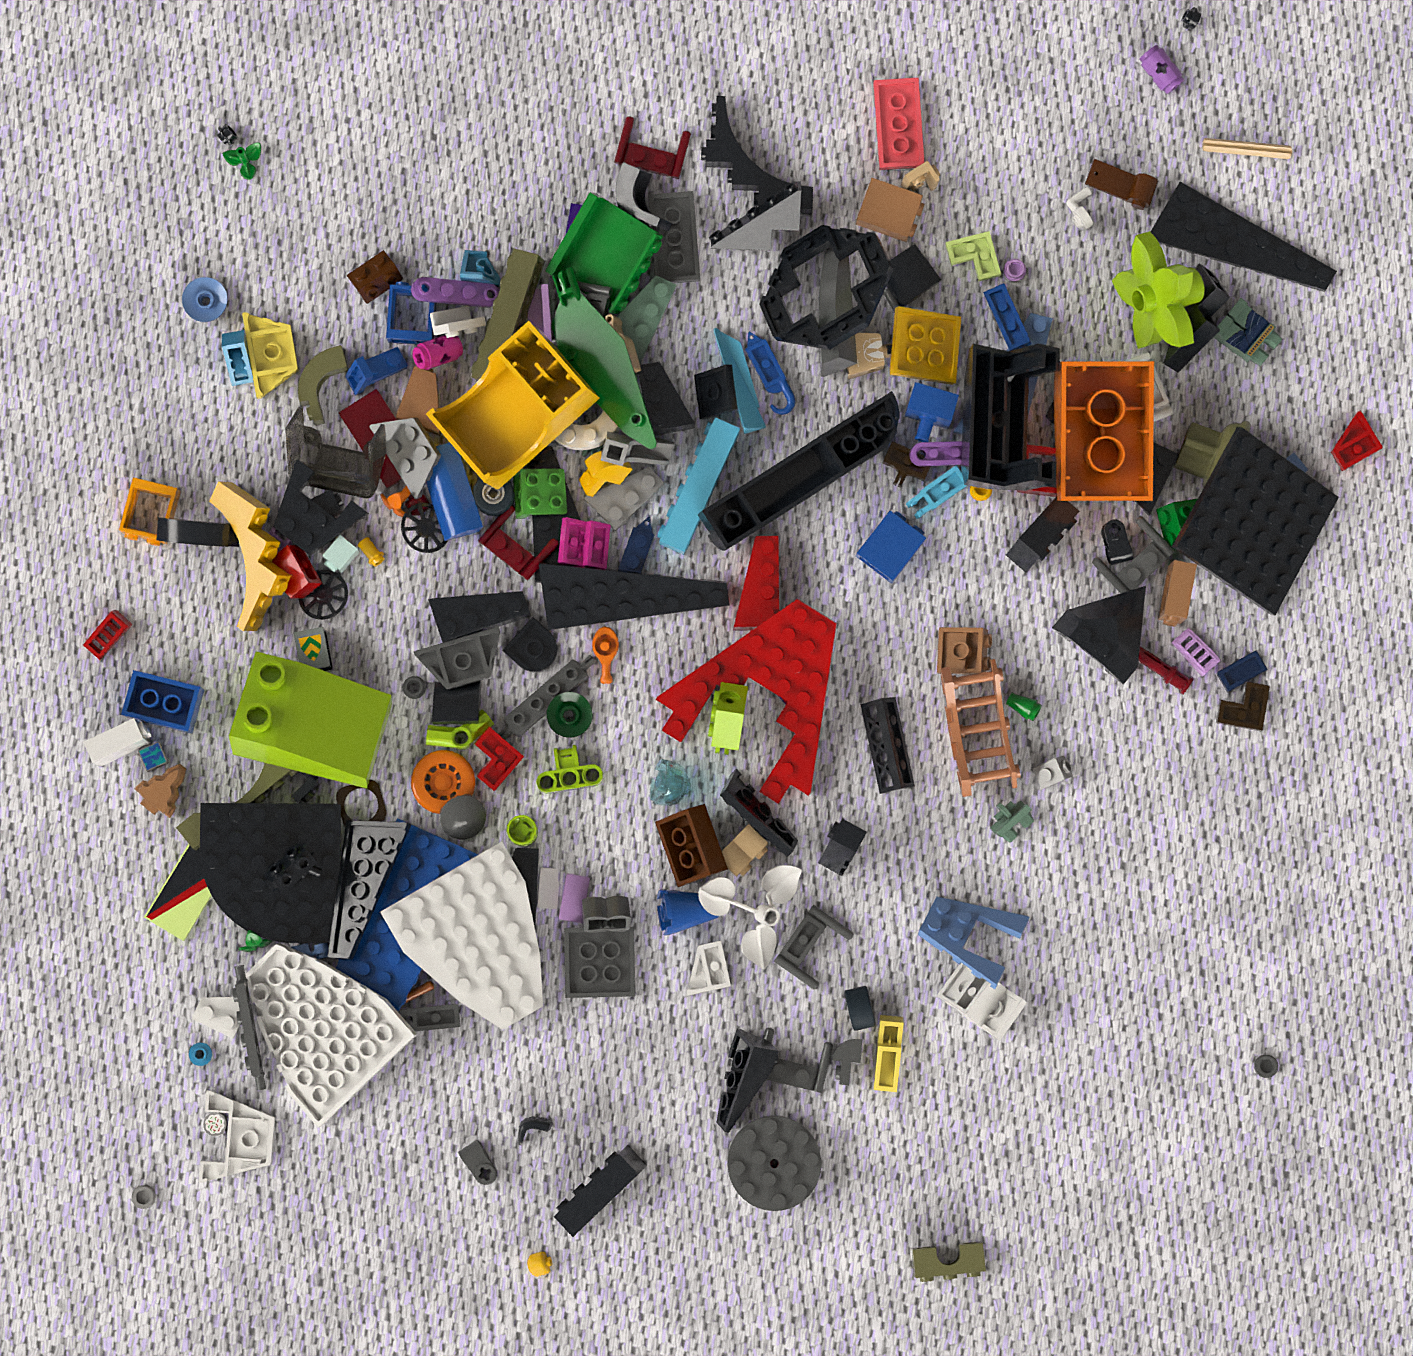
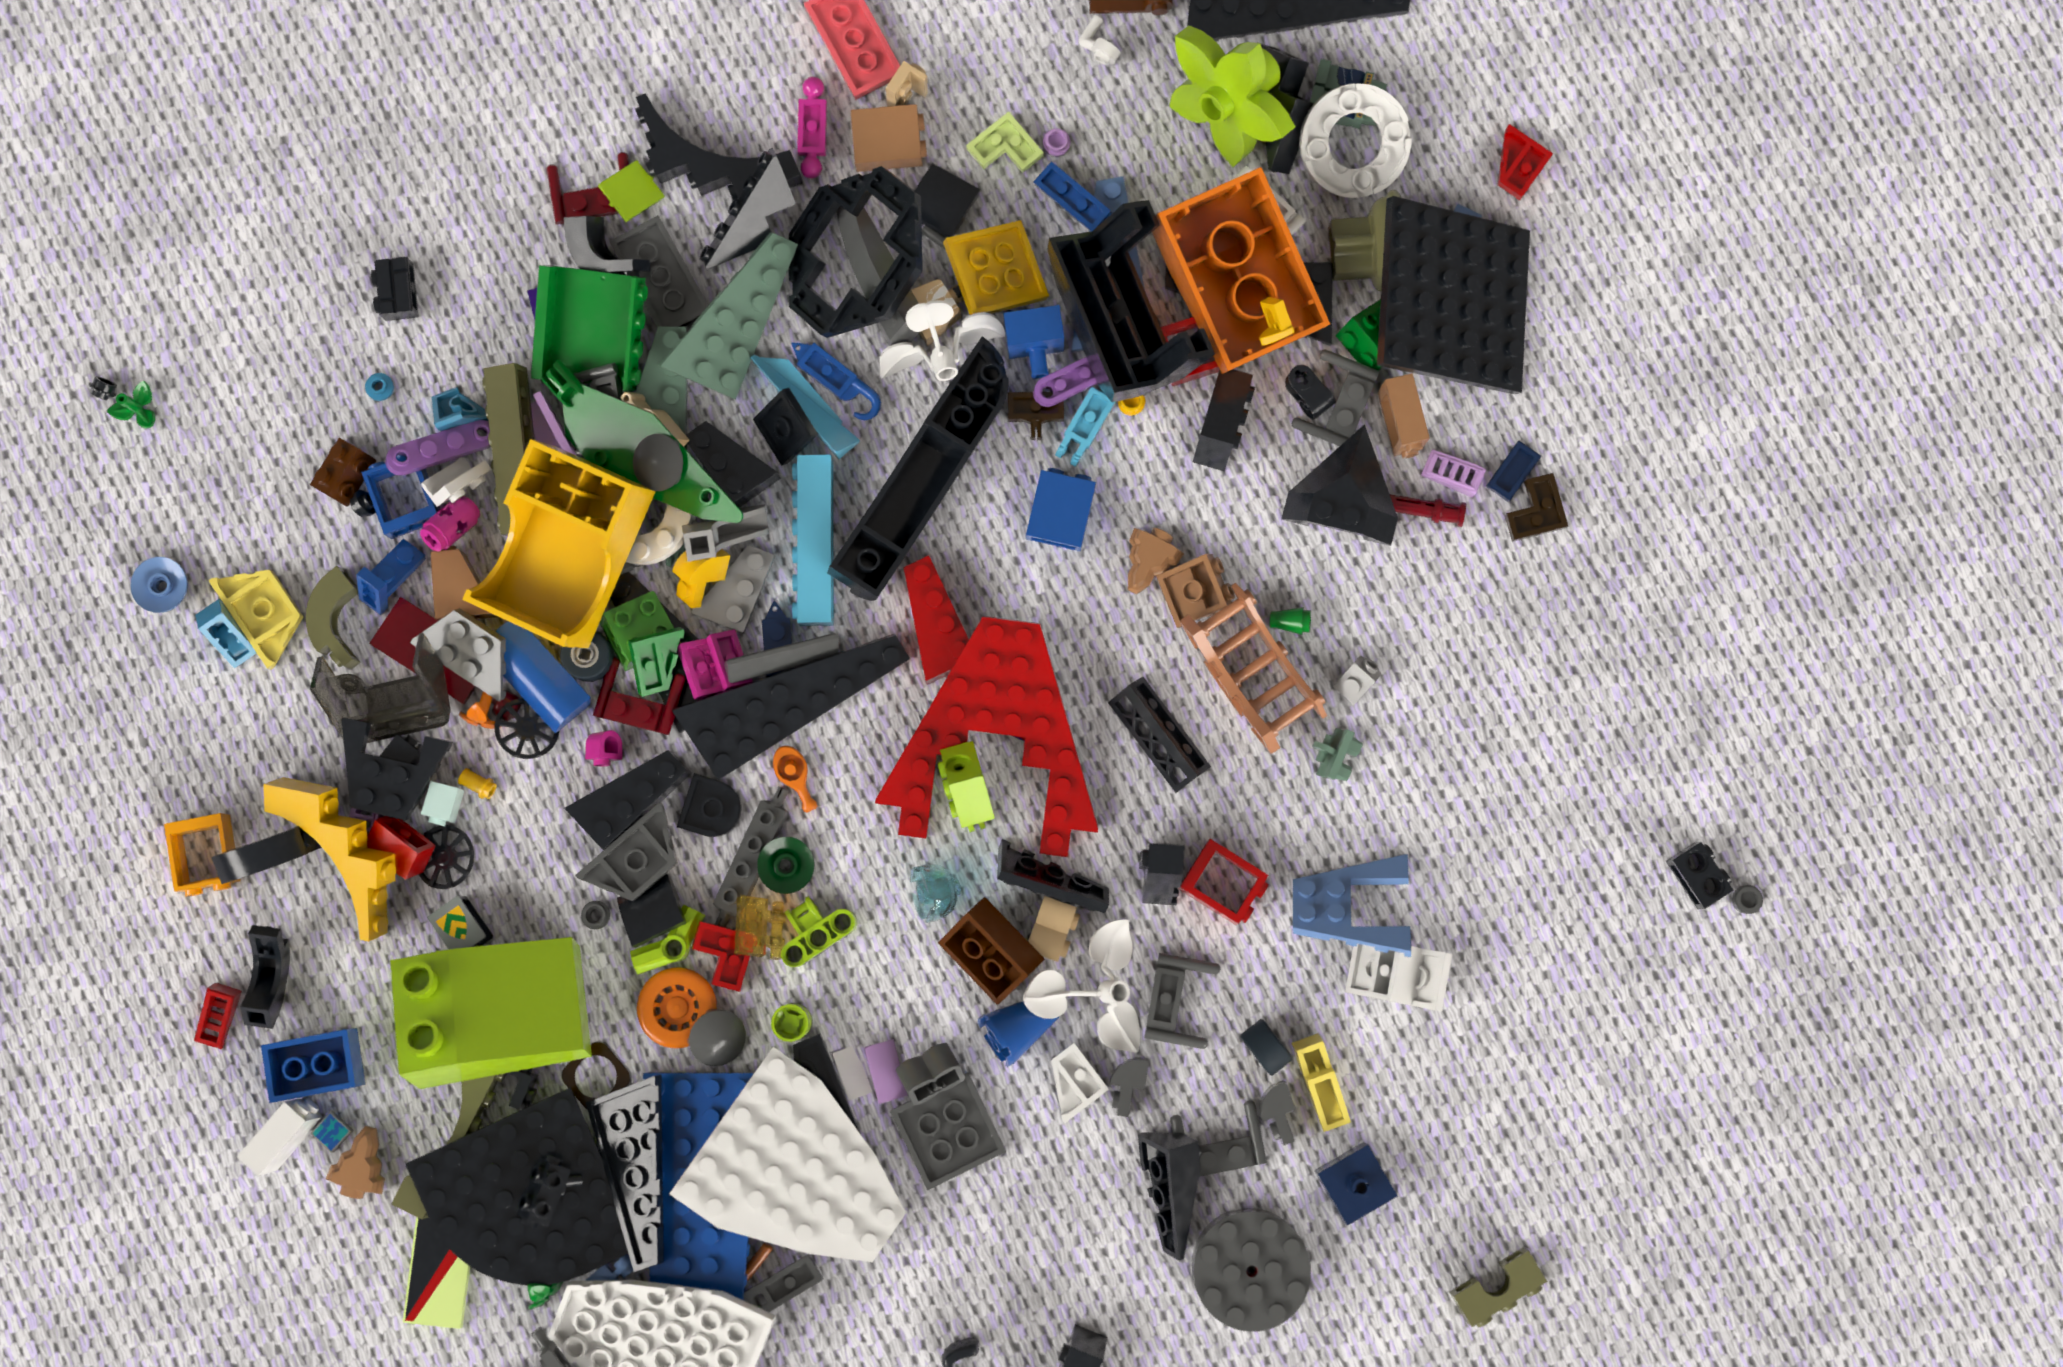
camera: 20 degrees left, 0 degrees up
(158, 622) = (268, 977): none -> black arch
(379, 307) = (362, 504): none -> black plate
(433, 231) = (385, 392): none -> dark azure plate
(474, 158) = (395, 289): none -> black brick
(475, 568) = (603, 748): none -> dark pink plate
(524, 749) = (751, 927): none -> clear yellow plate
(542, 520) = (654, 659): none -> wing
(611, 377) = (658, 462): none -> dark grey dish
(635, 561) = (781, 658): none -> dark grey slope
(681, 163) = (631, 191): none -> lime piece
(708, 300) = (729, 329): none -> sand green wing
(750, 983) = (1128, 1076): none -> dark grey brick
(837, 176) = (812, 127): none -> dark pink plate
(854, 396) = (942, 360): none -> white plant
(874, 853) = (1197, 869): none -> red window
(879, 1137) = (1355, 1183): none -> dark blue brick
(941, 611) = (1149, 557): none -> medium nougat rock
(1114, 480) = (1277, 321): none -> yellow tile
(1232, 1032) = (1694, 880): none -> black brick
(1260, 394) = (1394, 140): none -> white plate

